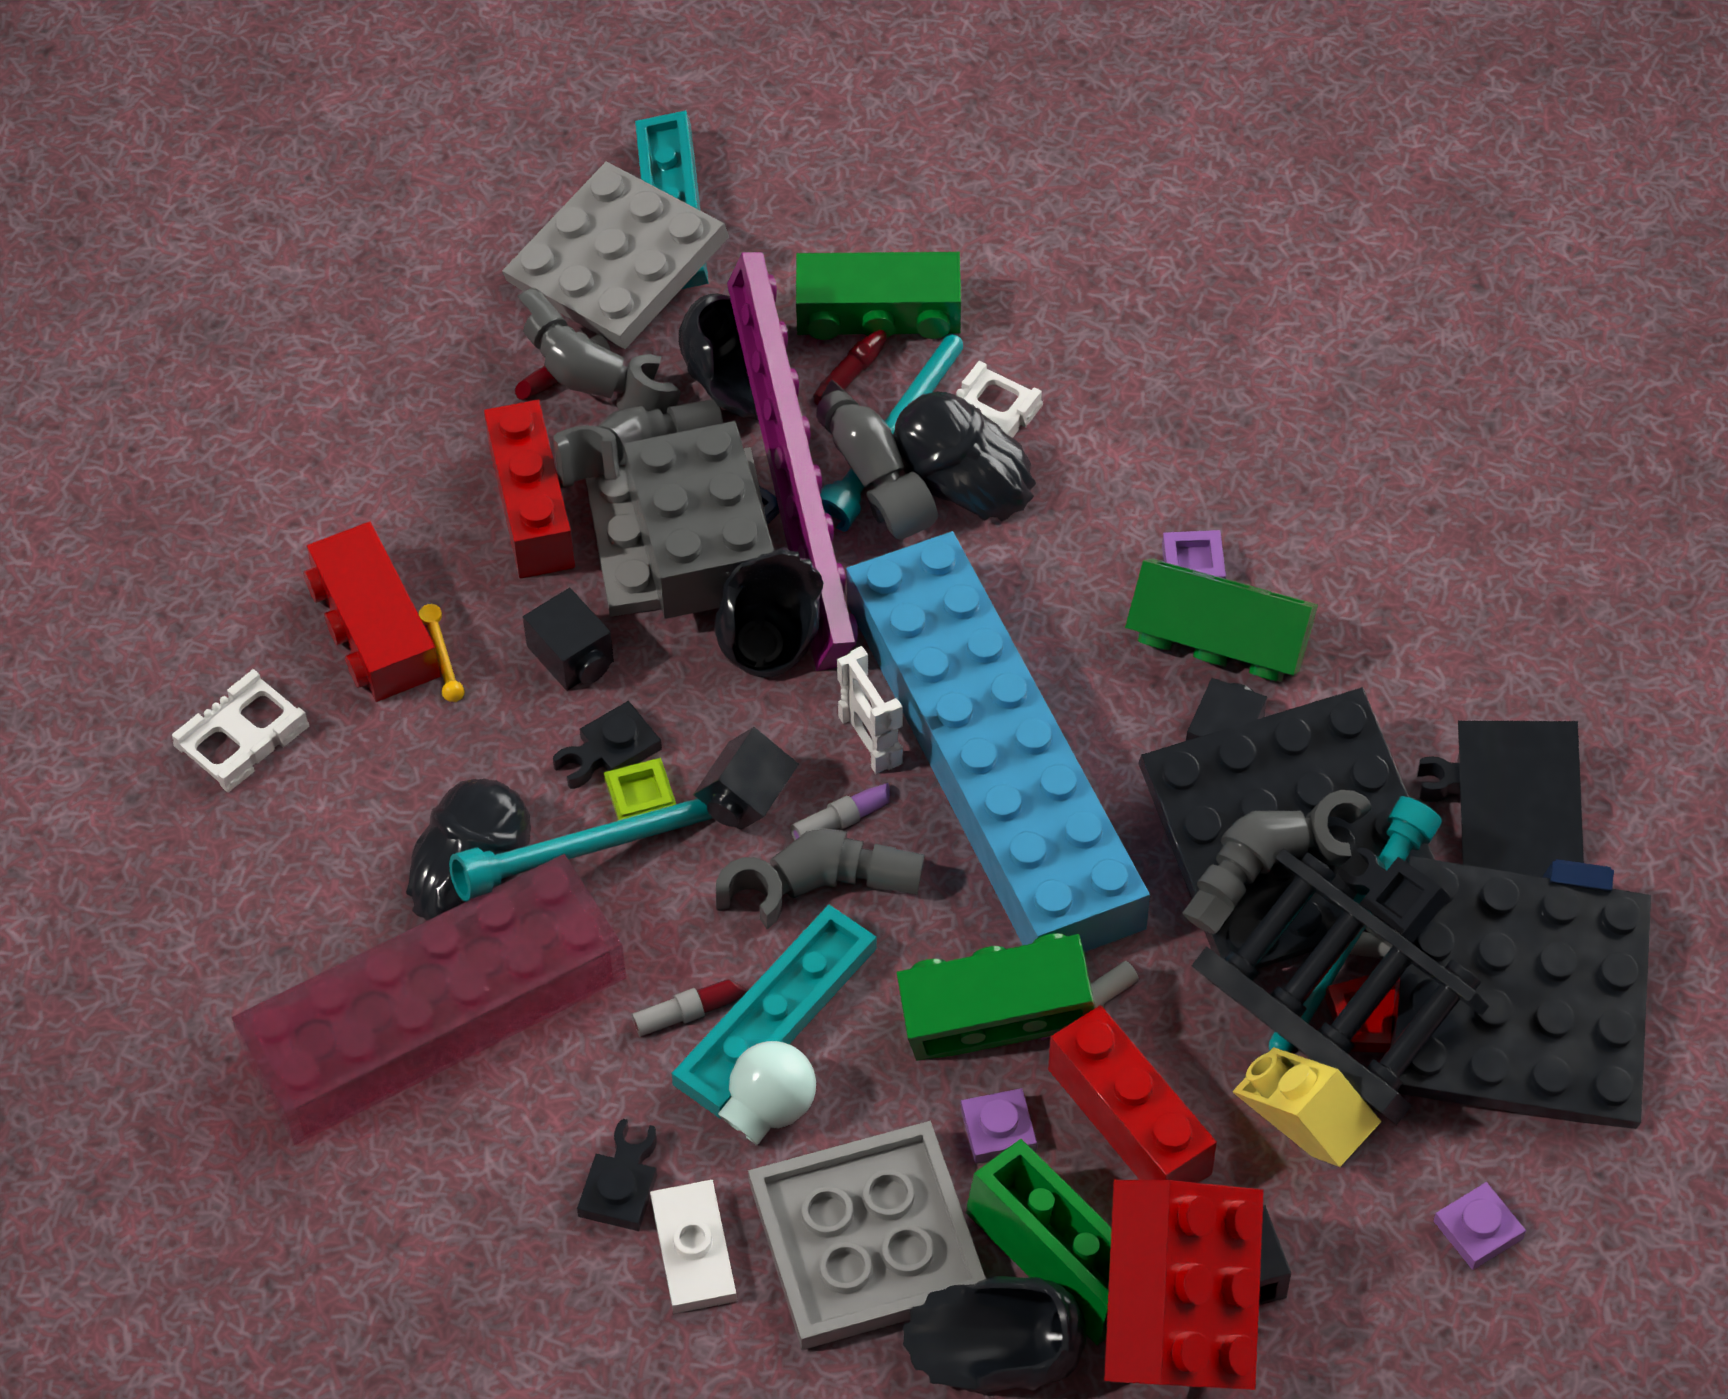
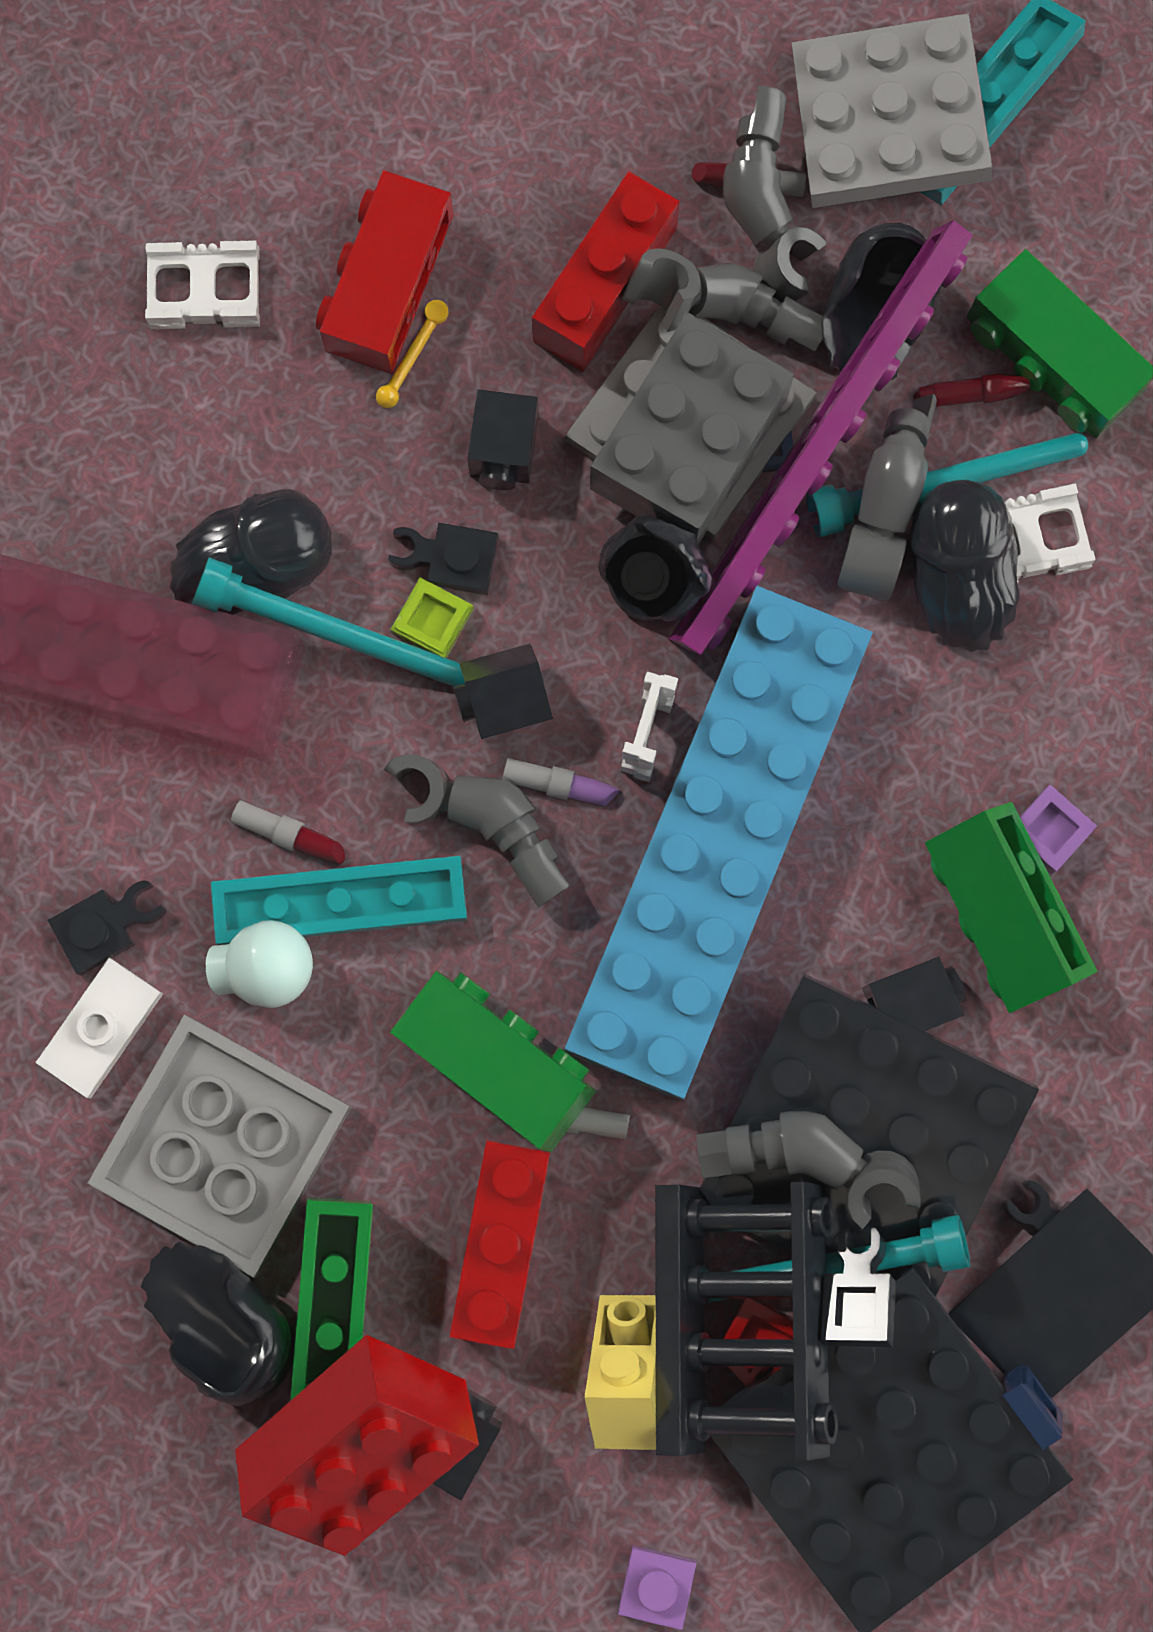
camera: 45 degrees right, 25 degrees up
(997, 1123) = (402, 1152): medium lavender plate -> none

